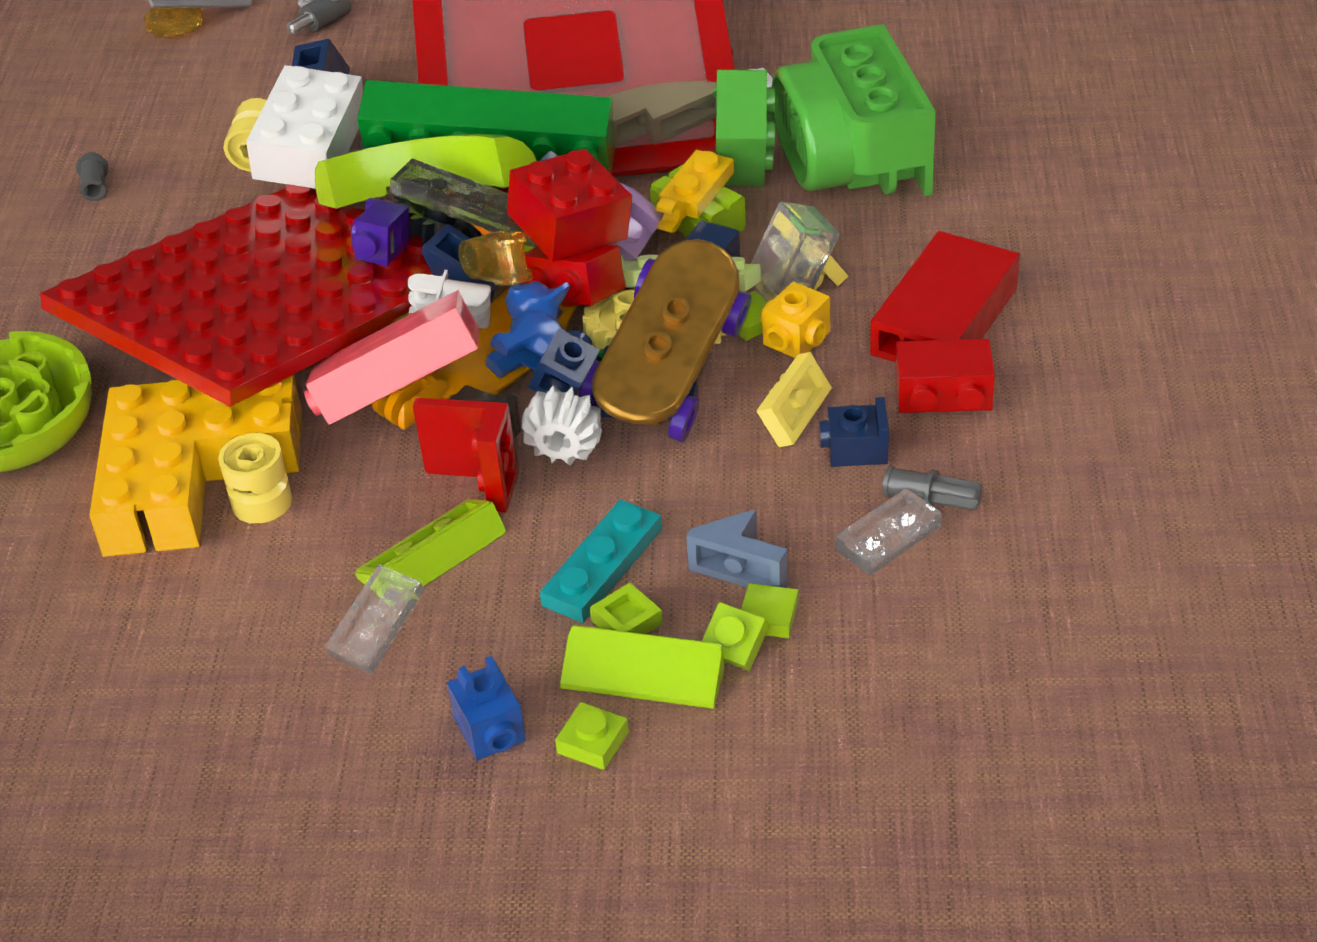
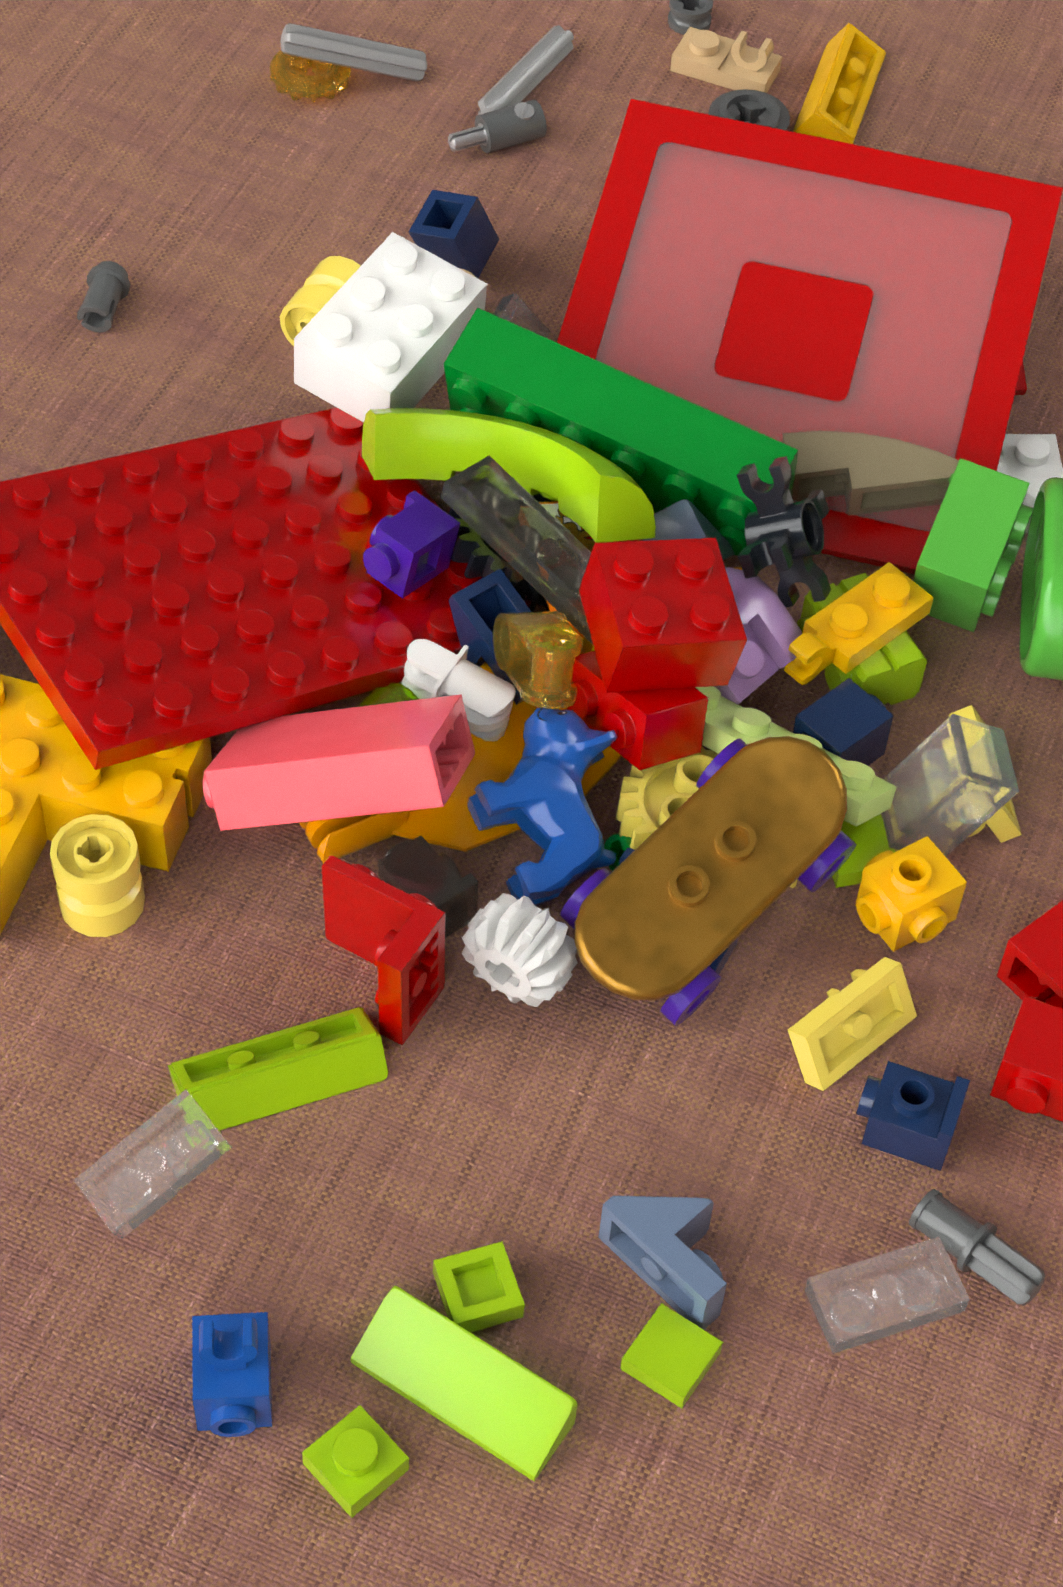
camera: 15 degrees right, 10 degrees up
(566, 358) = (541, 875): dark blue brick -> none
(601, 560) = (487, 1179): teal plate -> none
(623, 145) = (783, 532): none -> black pin
(738, 634) = (605, 1384): lime plate -> none

